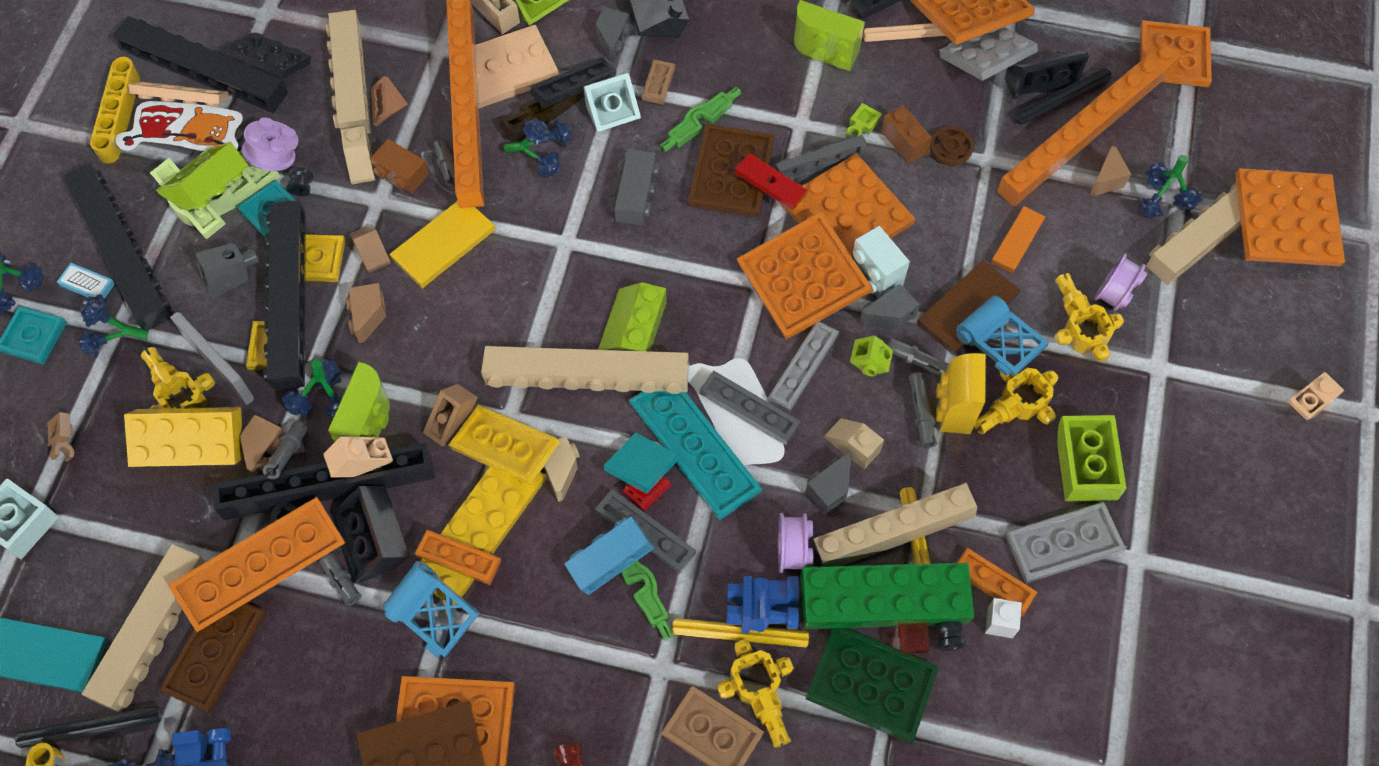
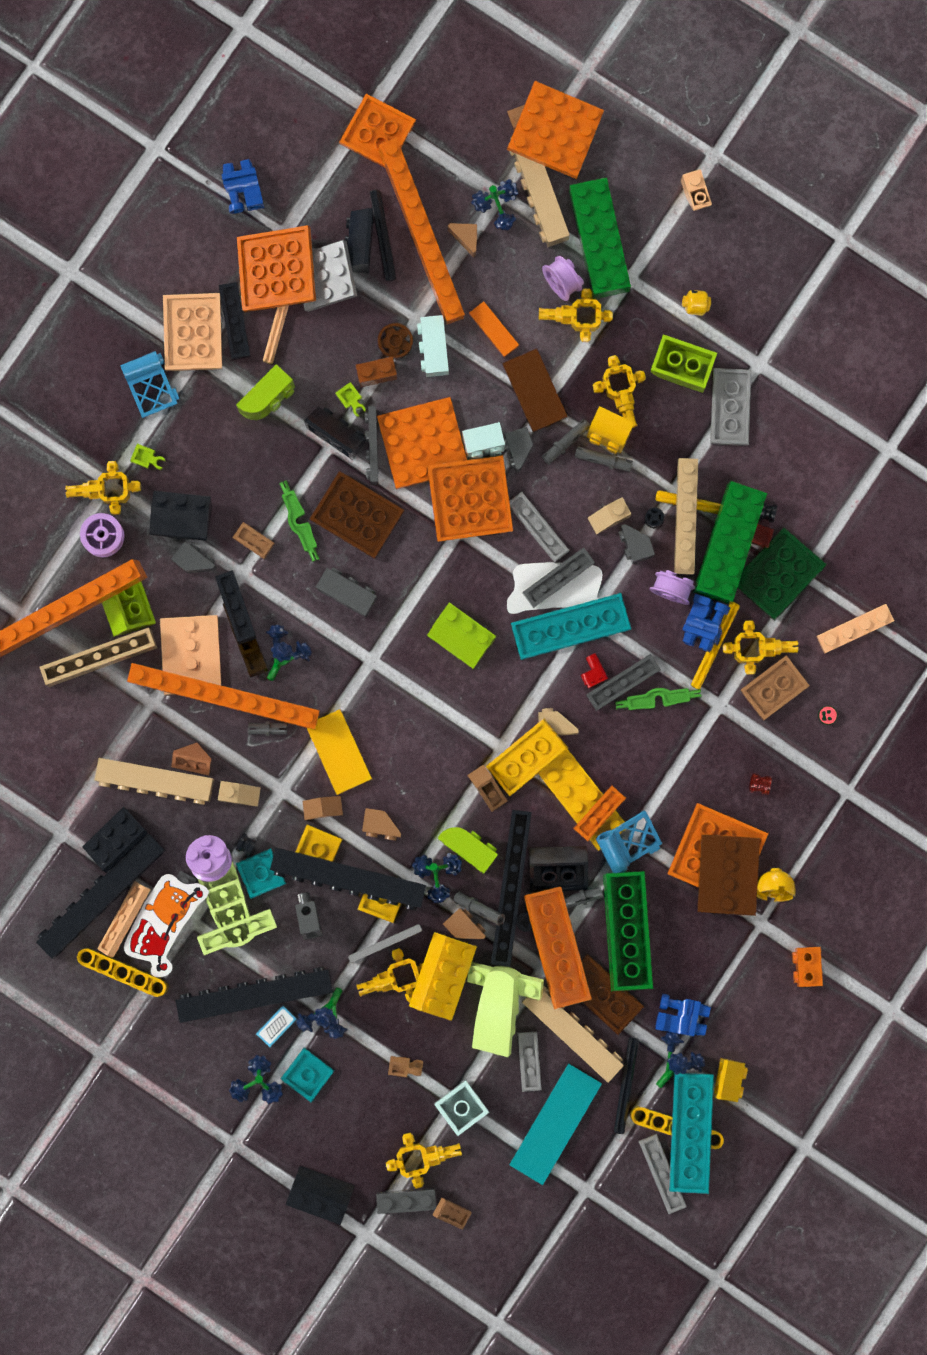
camera: 70 degrees left, 20 degrees up
(99, 588) = (529, 1061): none -> light grey tile
(161, 516) = (499, 1005): none -> yellowish green slope
(204, 177) = (229, 914): lime slope -> none
(301, 648) = (627, 931): none -> green brick
(356, 455) = (510, 858): light nougat slope -> none
(399, 166) = (261, 765): dark orange brick -> none
(586, 369) = (489, 681): tan brick -> none
(609, 555) = (634, 712): dark azure brick -> none
(611, 102) = (264, 584): light aqua slope -> none
(641, 462) = (574, 667): teal tile -> none
(771, 181) = (394, 484): red tile -> none
(817, 113) = (335, 432): none -> black slope
(871, 355) = (553, 477): lime brick -> none
(878, 489) = (656, 515): none -> black wheel
(965, 182) = (433, 346): none -> light aqua brick
(985, 324) = (557, 385): dark azure piece -> none
(996, 581) = (740, 465): orange tile -> none
(1003, 618) = (769, 472): white brick -> none
(1175, 449) = (696, 302): none -> yellow head
(1189, 312) = (599, 238): none -> green brick

